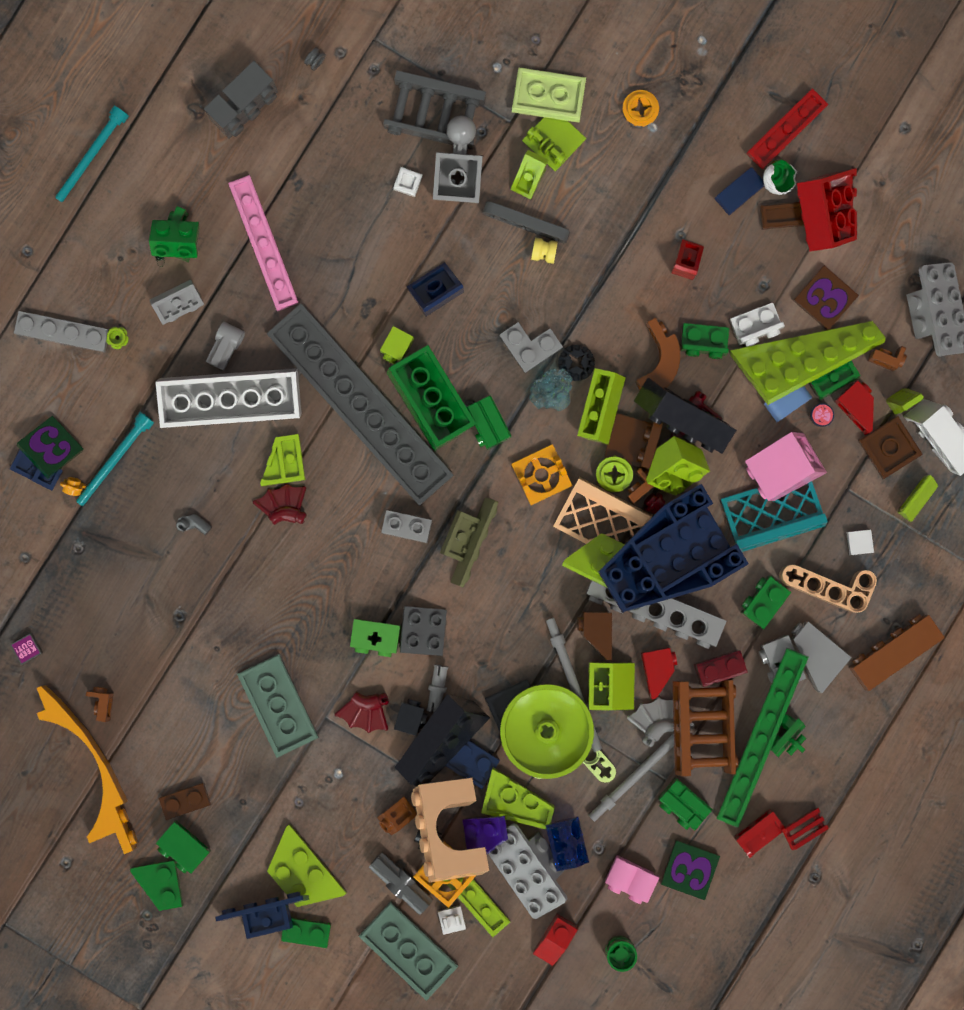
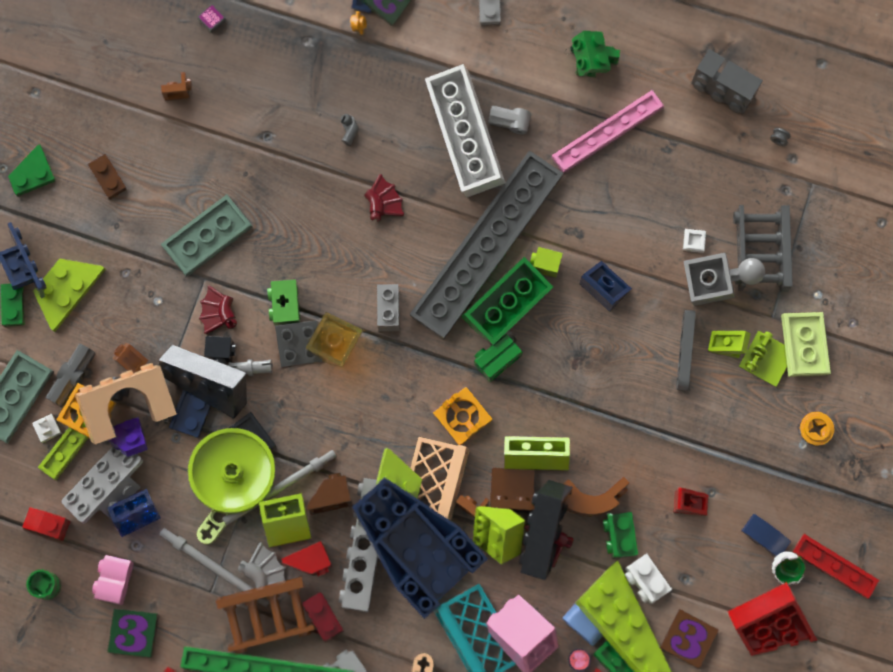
camera: 75 degrees right, 10 degrees down
(111, 816) = (83, 117): light orange slope -> none
(112, 333) = (495, 25): lime plate -> none
(141, 424) = (426, 67): teal piece -> none
(176, 302) = (537, 69): light grey bracket -> none
(182, 847) = (66, 182): green brick -> none
(285, 462) = (421, 192): lime wing -> none
(430, 592) = (334, 340): none -> clear yellow slope
(466, 538) = (389, 361): olive bracket -> none
(515, 802) = (162, 459): lime wing -> none
(528, 352) = (569, 380): light grey plate -> none
(544, 250) = (664, 371): light yellow wheel -> none
(552, 390) = (540, 406): clear light blue plant -> none
(587, 362) = (573, 433): black gear -> none
(606, 481) = (472, 473): lime gear -> none
(654, 503) = (462, 521): dark red plate -> none
(685, 804) = (191, 612): green brick -> none
(765, 601) = (394, 646): green bracket -> none
(781, 215) = (753, 578): reddish brown tile -> none

